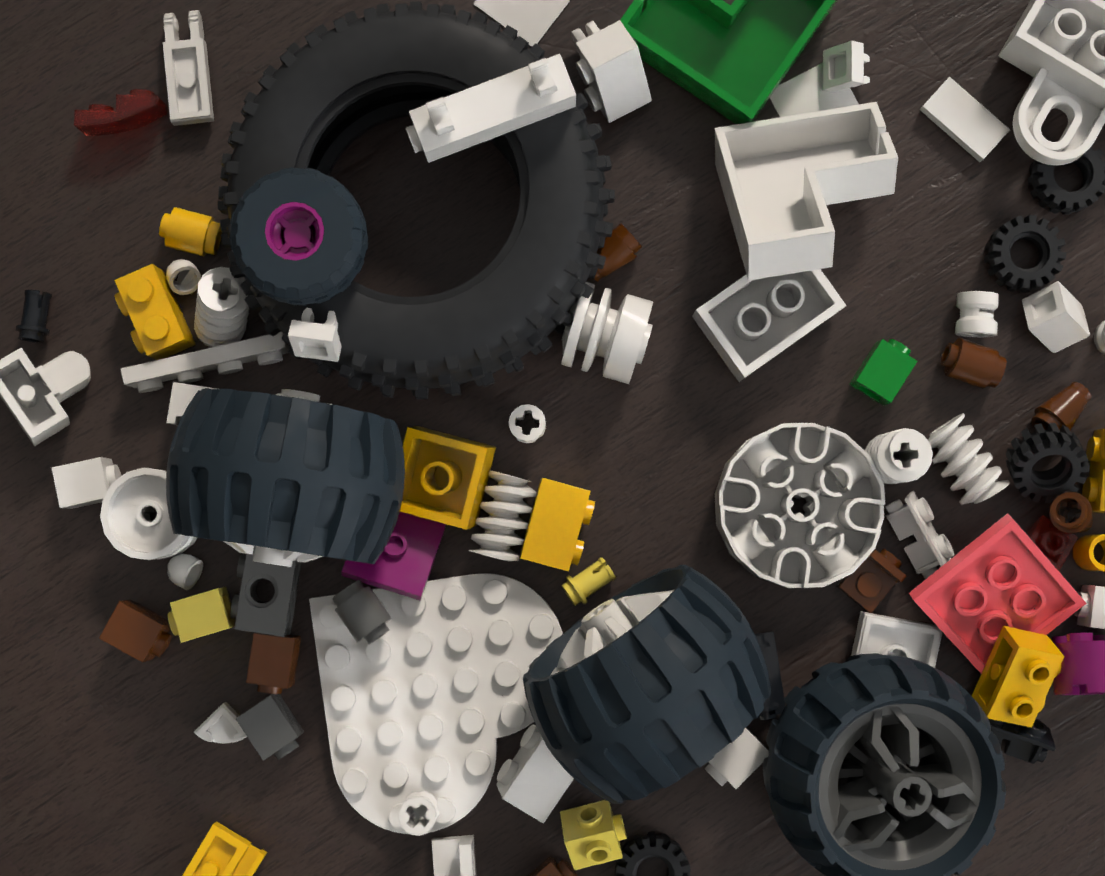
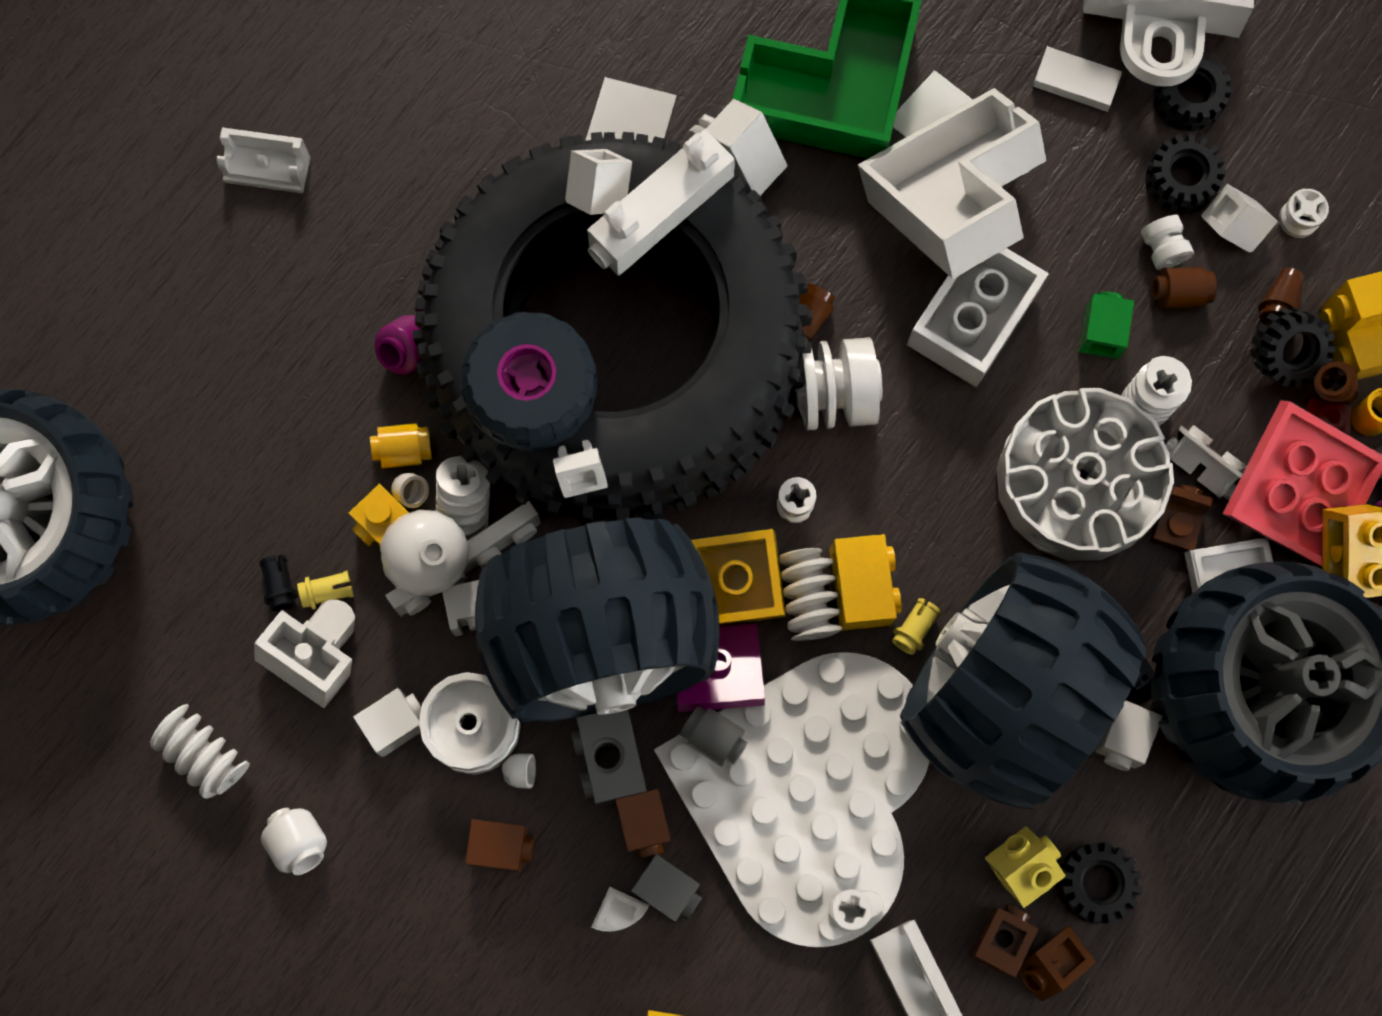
camera: 25 degrees left, 10 degrees down
(73, 338) = (322, 589): none -> light yellow pin
(131, 113) = (304, 354): clear red slope -> none
(164, 346) = (424, 552): none -> white cylinder
(187, 72) = (341, 302): white hinge -> none
(201, 614) = (554, 806): light yellow brick -> none
(214, 135) = (396, 346): none -> magenta head
(442, 63) = (597, 179): none -> white panel
(533, 778) = (948, 824): white brick -> none
(844, 66) = (949, 72): white tile -> none
(965, 462) = (1219, 378): white piece -> none

